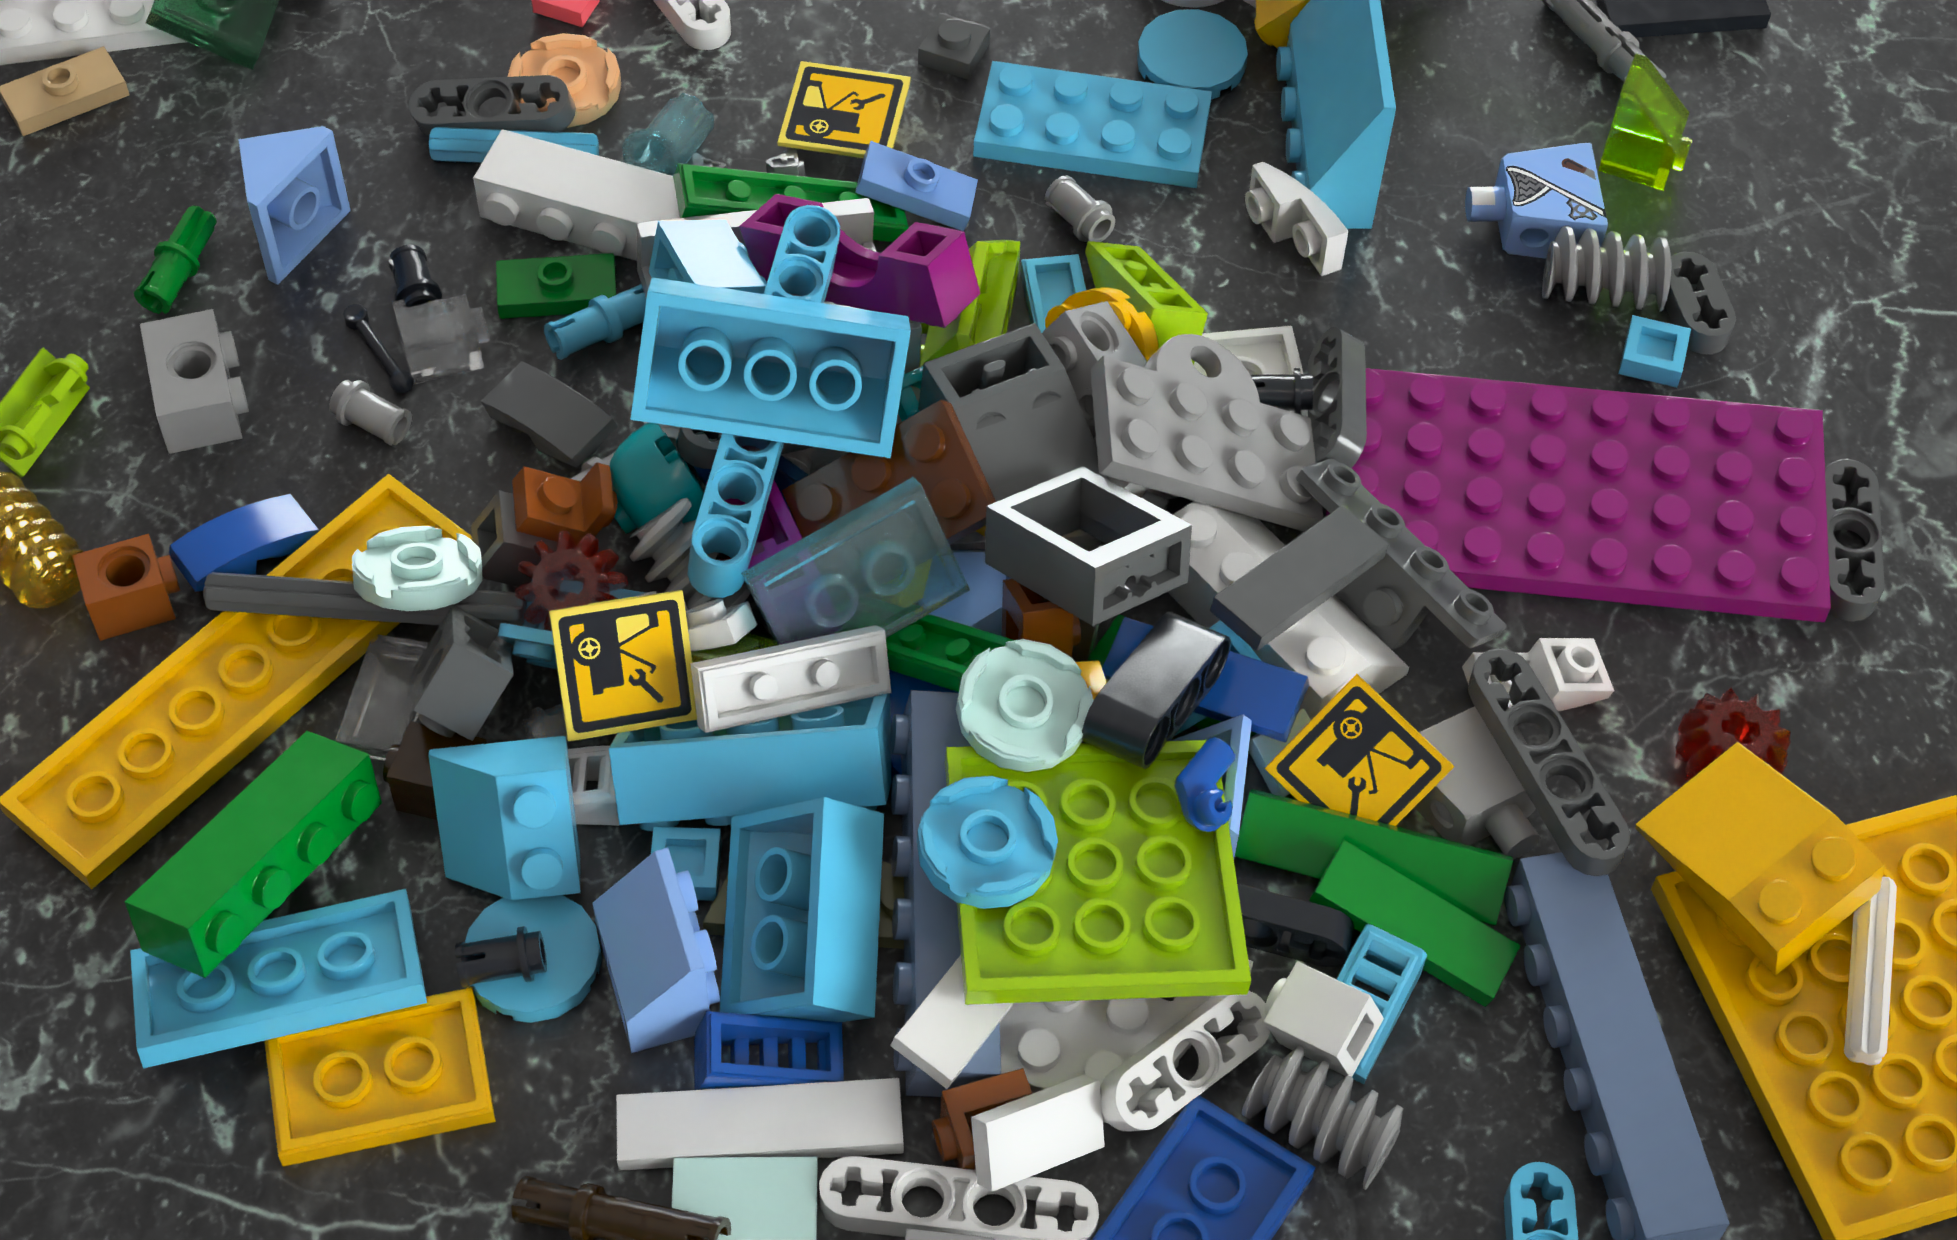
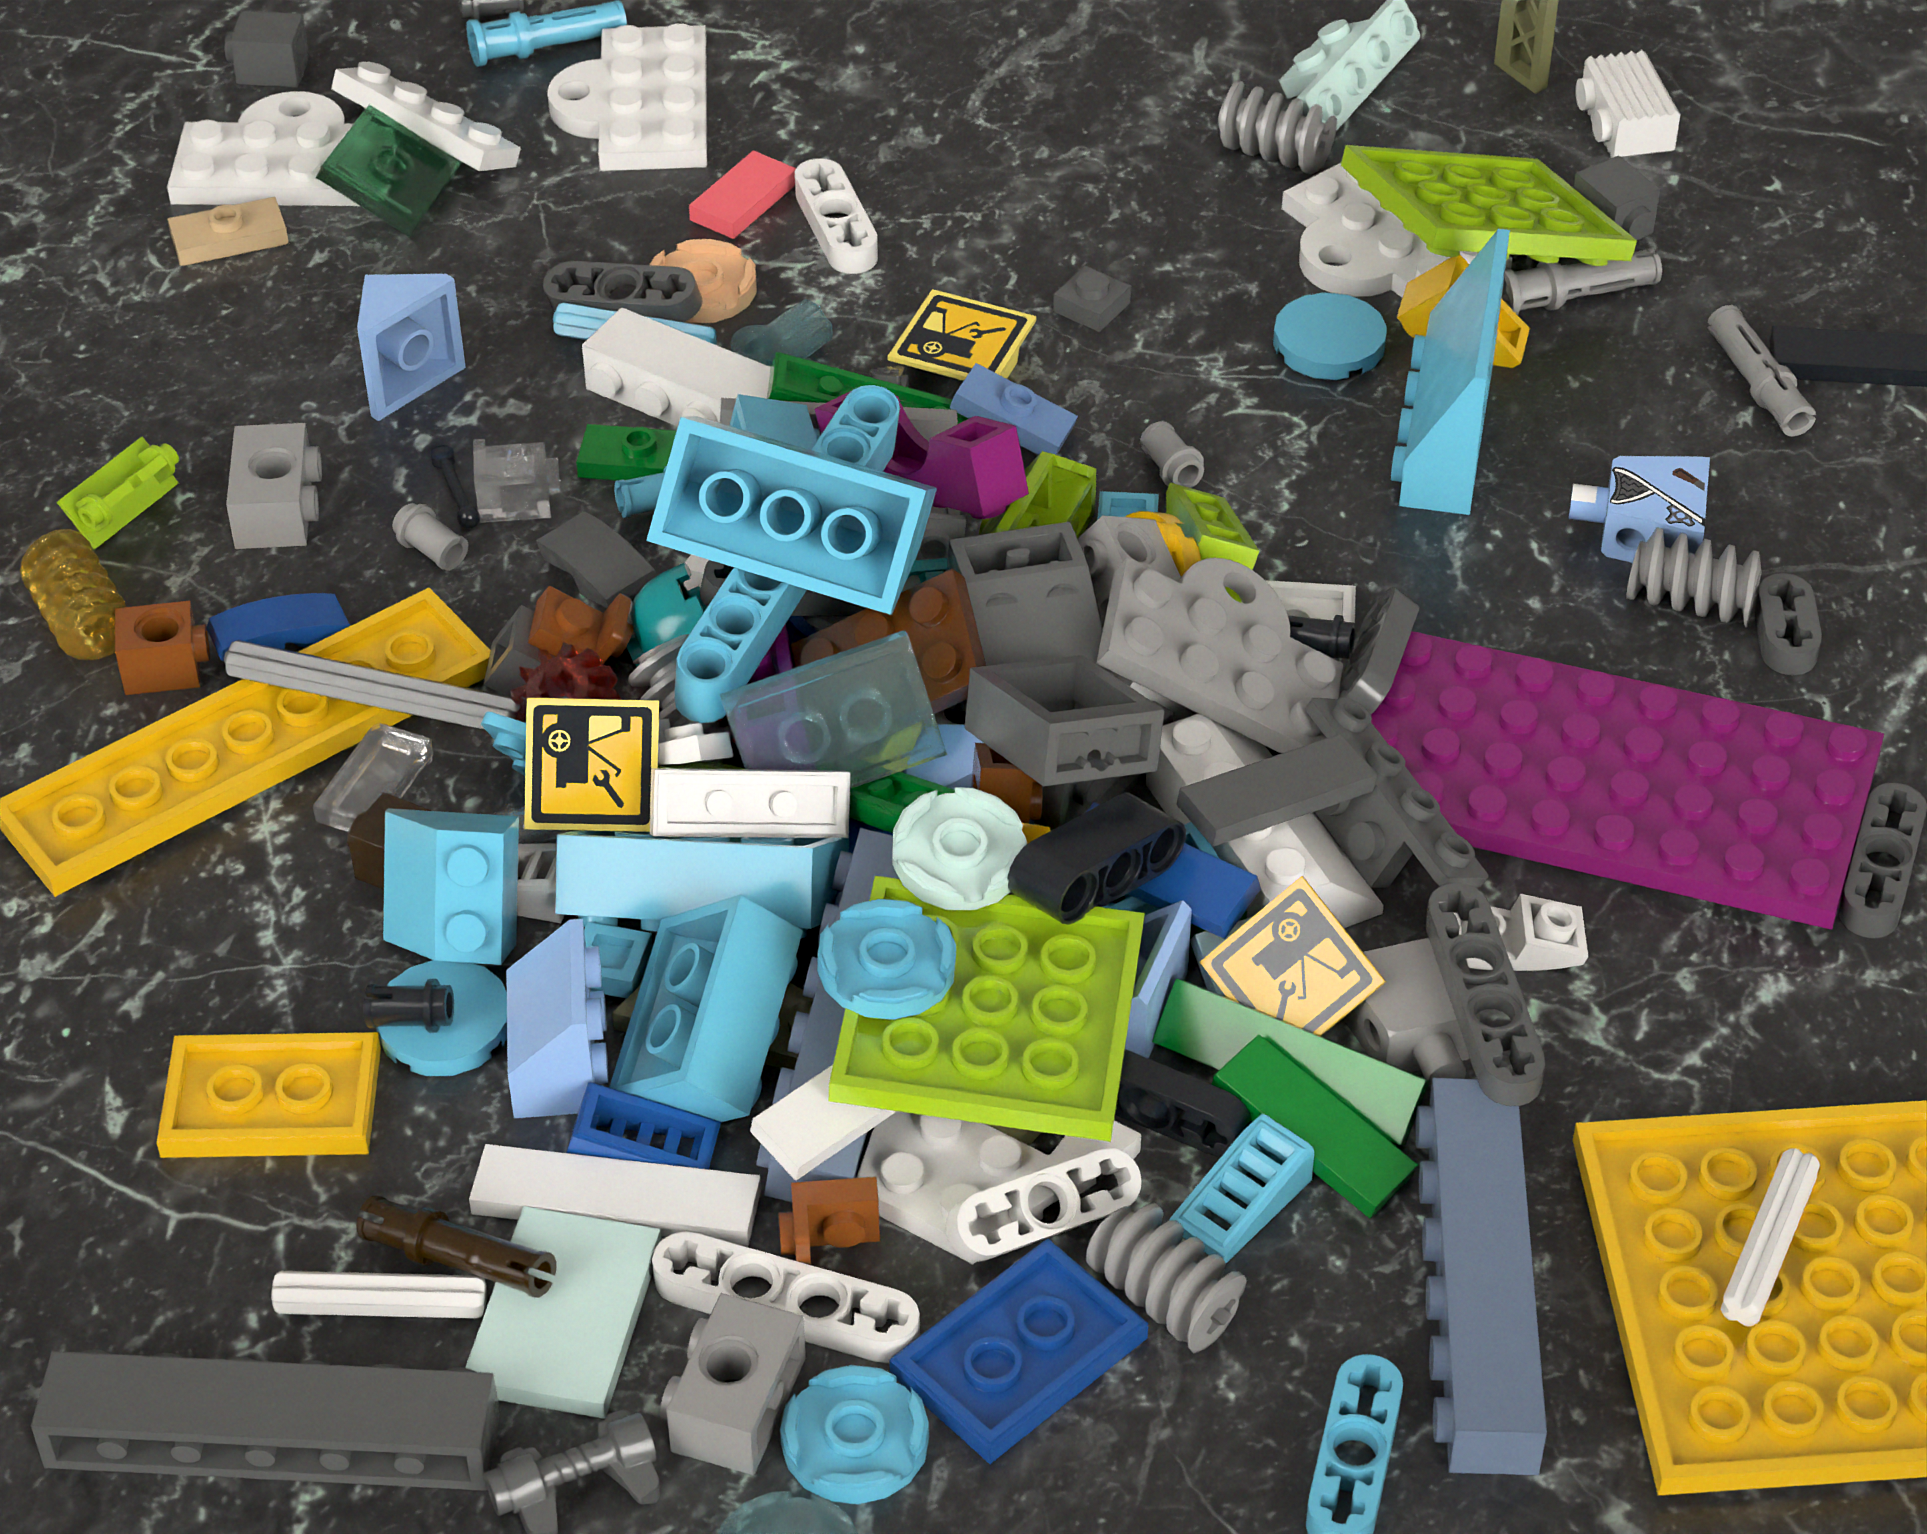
camera: 15 degrees right, 10 degrees down
(175, 260) = (288, 383): green axle -> none
(254, 853) = (206, 878): green brick -> none
(282, 980) = (198, 991): medium azure plate -> none
(413, 276) = (504, 422): black pin -> none
(417, 569) = (426, 663): light aqua tile -> none
(460, 675) = (438, 757): dark grey brick -> none
(1037, 1132) = (876, 1237): white tile -> none
(1093, 124) = (1211, 384): medium azure plate -> none
(1198, 788) = (1110, 943): blue arm -> none
(1294, 211) = (1389, 487): white slope -> none
(1322, 1017) = (1190, 1184): white brick -> none
(1646, 129) = (1774, 453): clear neon green slope -> none
(1654, 351) = (1726, 659): medium azure plate -> none
(1721, 723) = (1695, 1021): clear red gear -> none
(1763, 855) = (1685, 1115): yellow slope -> none

